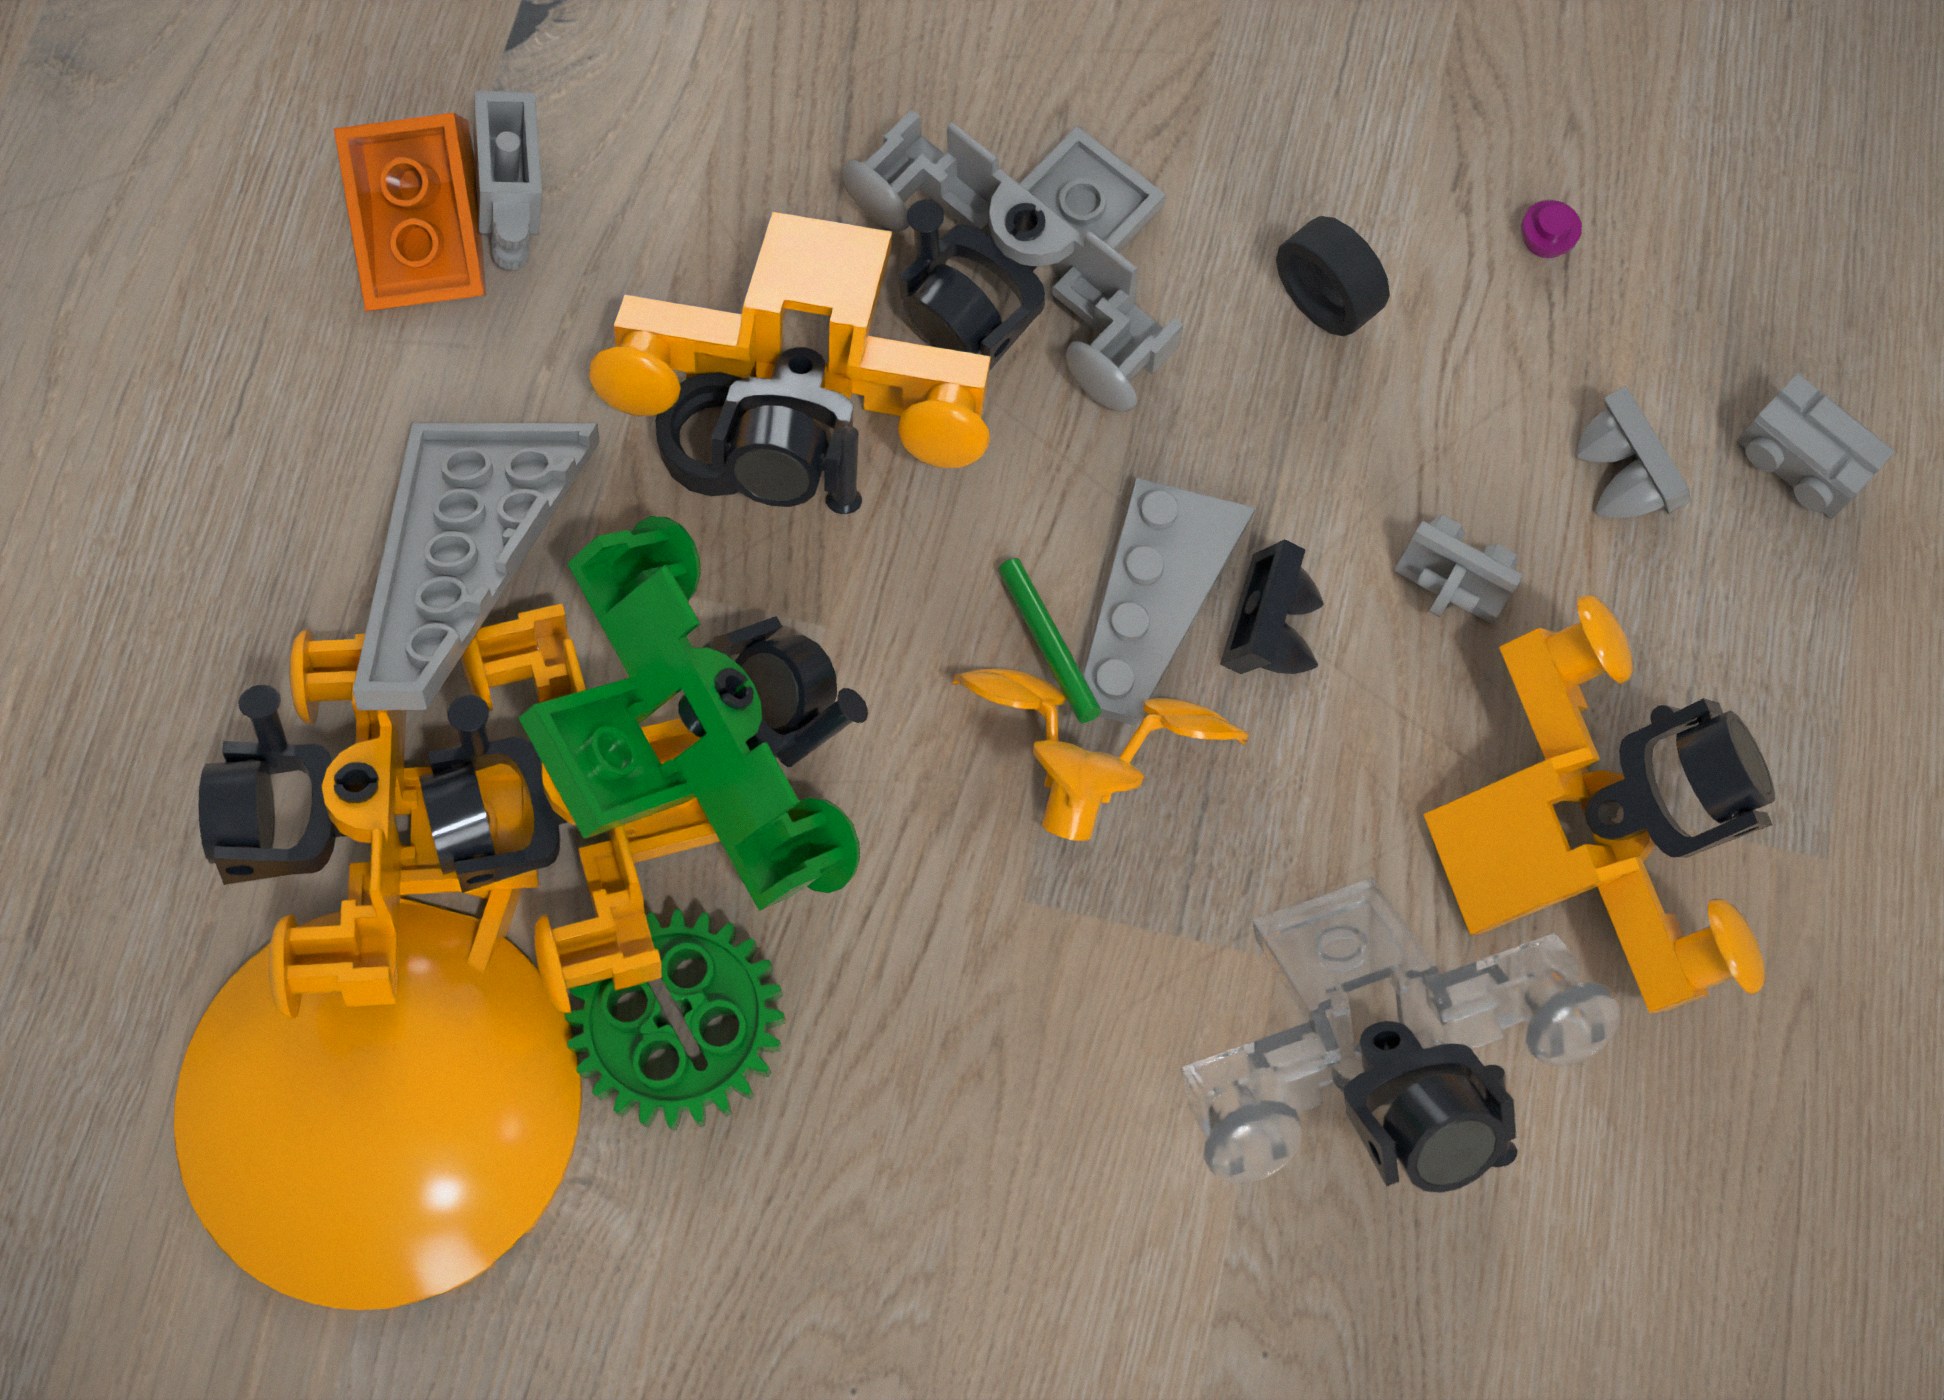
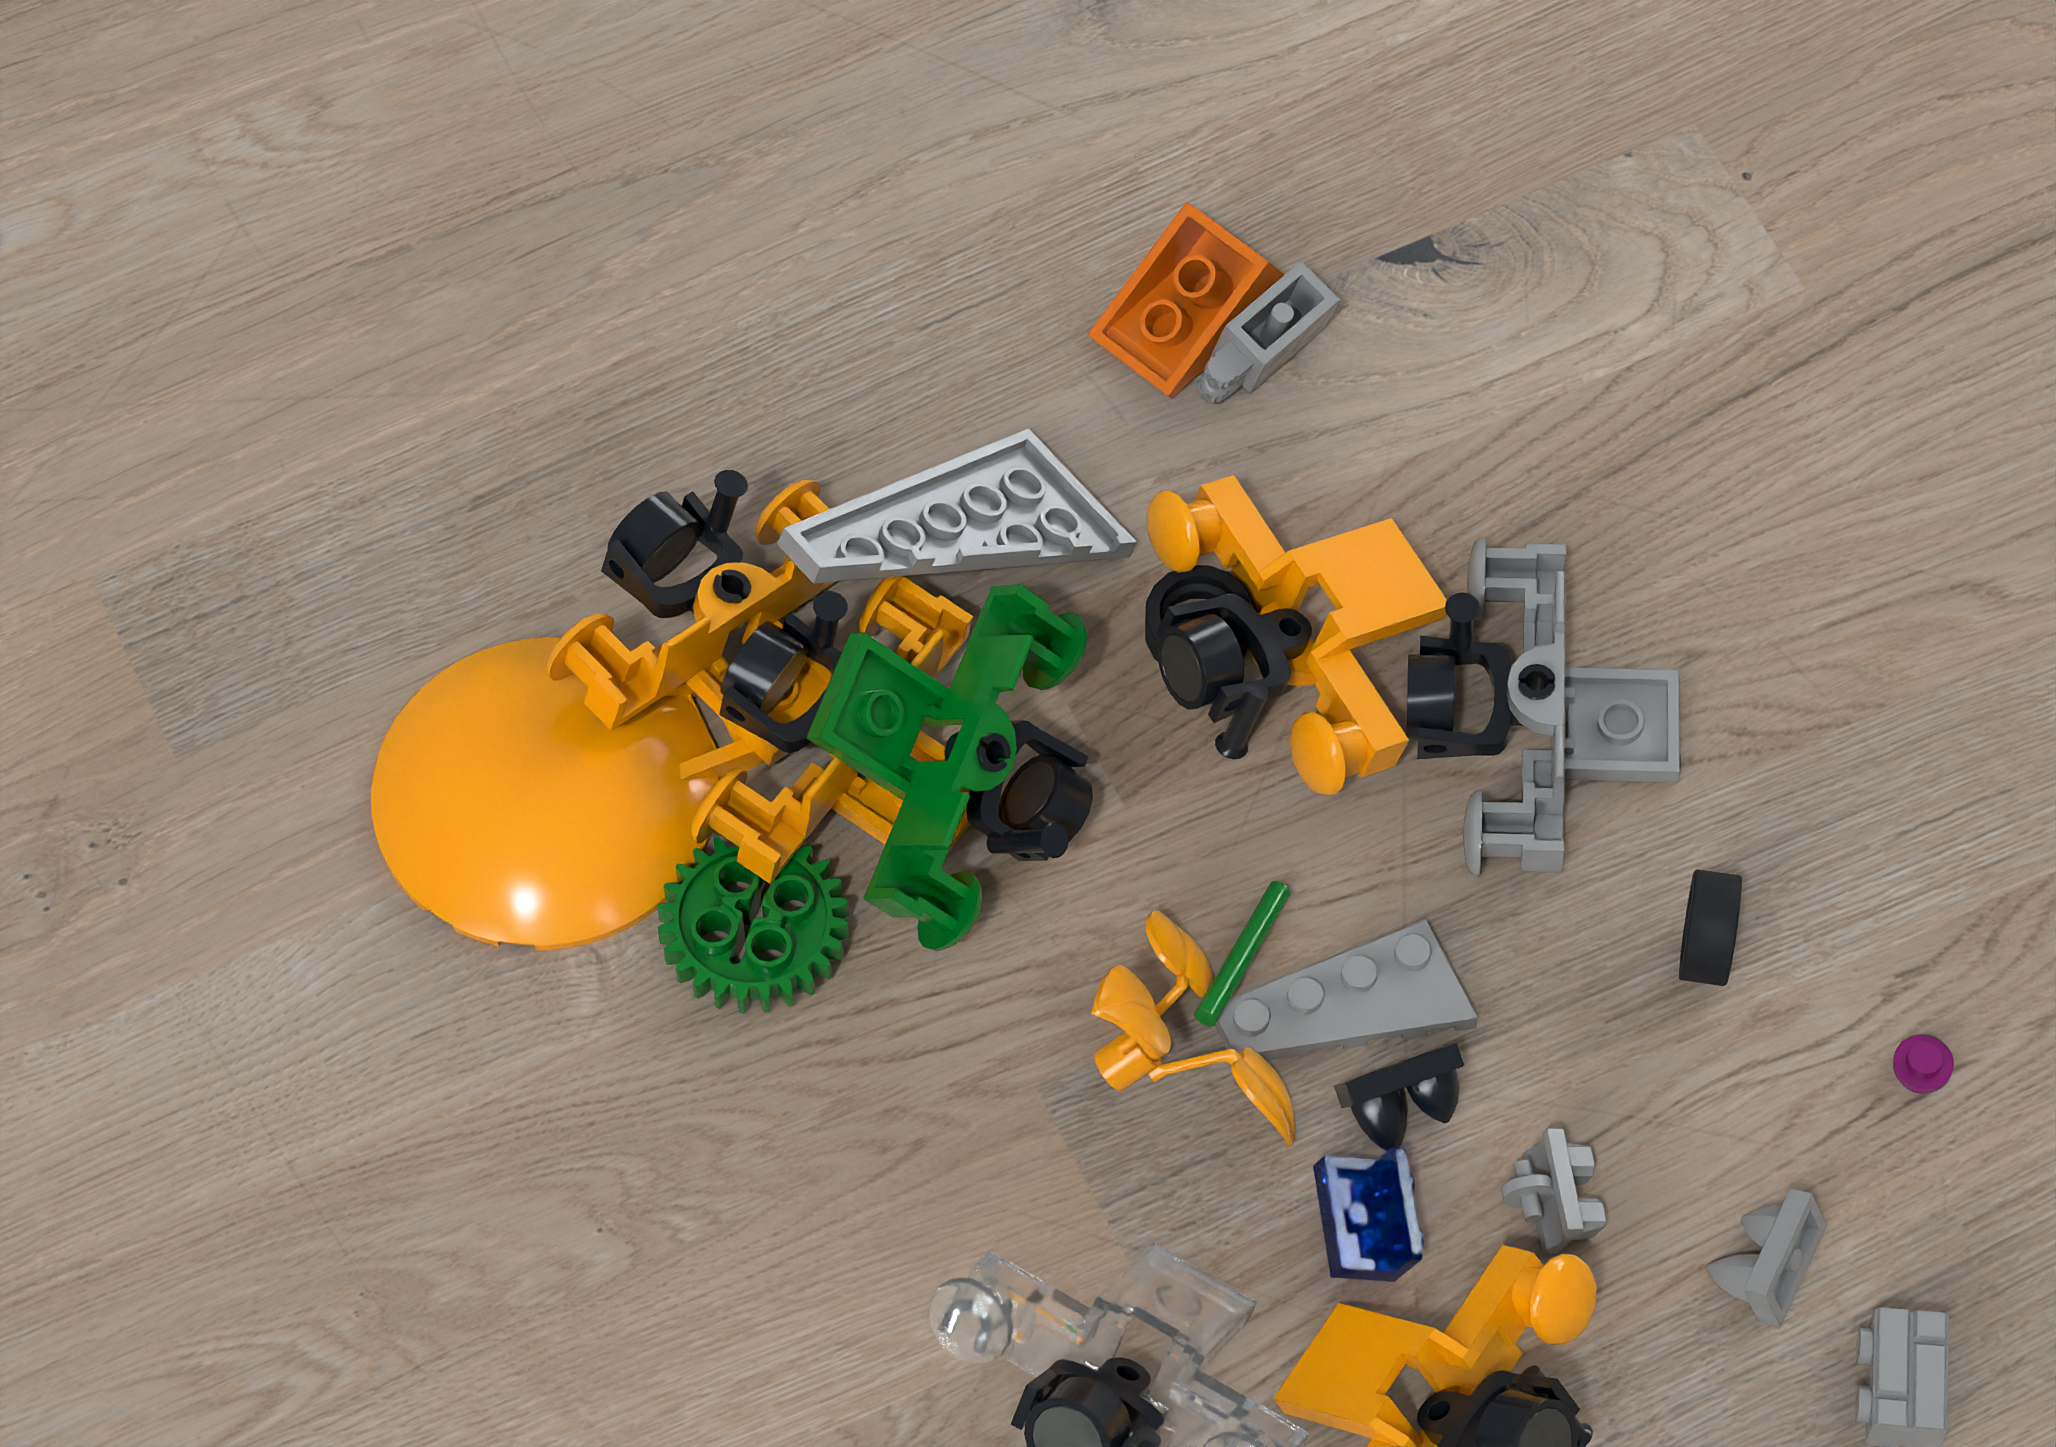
camera: 55 degrees right, 10 degrees down
(1371, 727) = (1369, 1216): none -> clear blue bracket

